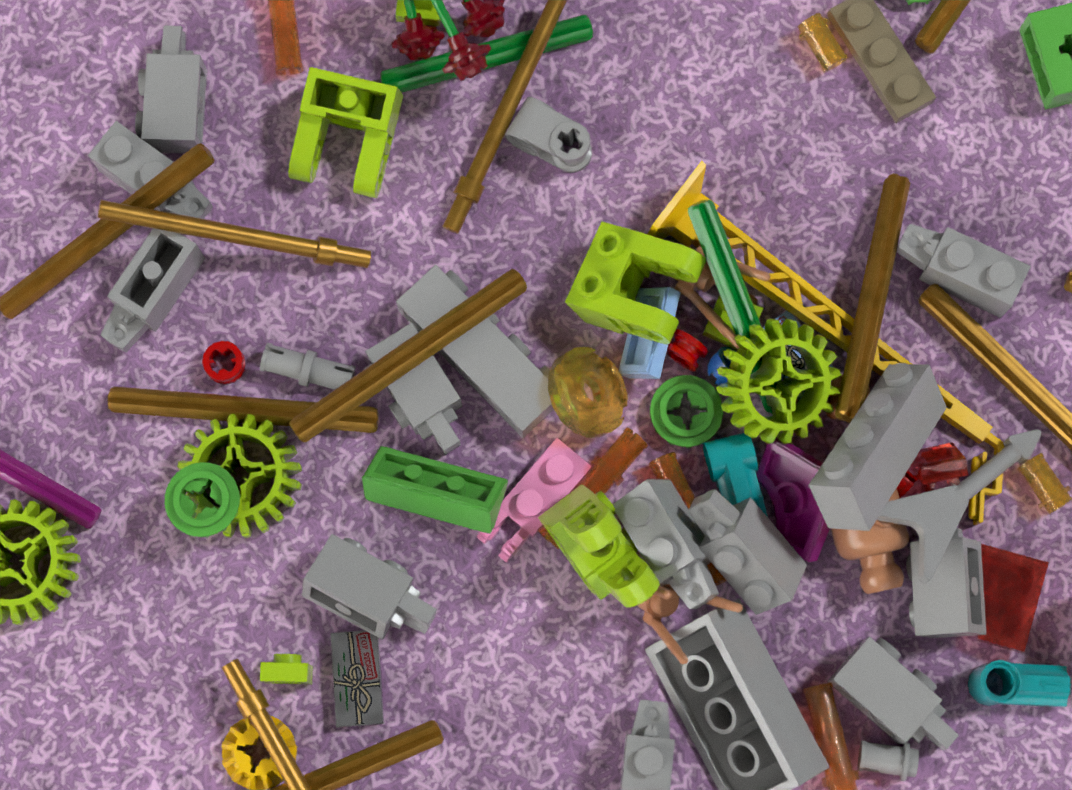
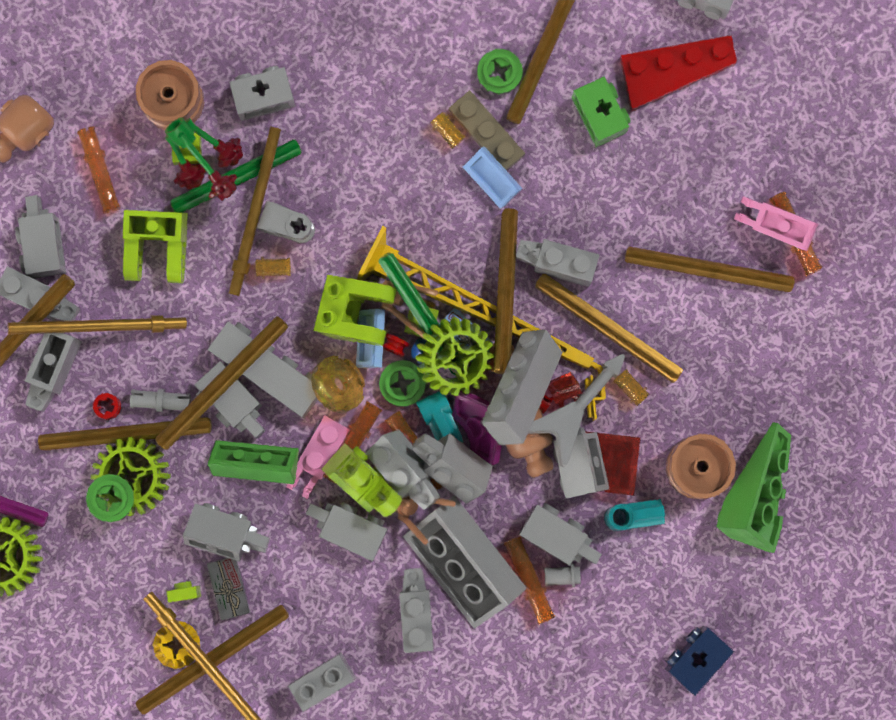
camera: 15 degrees left, 5 degrees up
(518, 198) = (272, 267): none -> clear yellow pin
(563, 621) = (349, 530): none -> light grey hinge
(879, 125) = (492, 177): none -> light blue tile

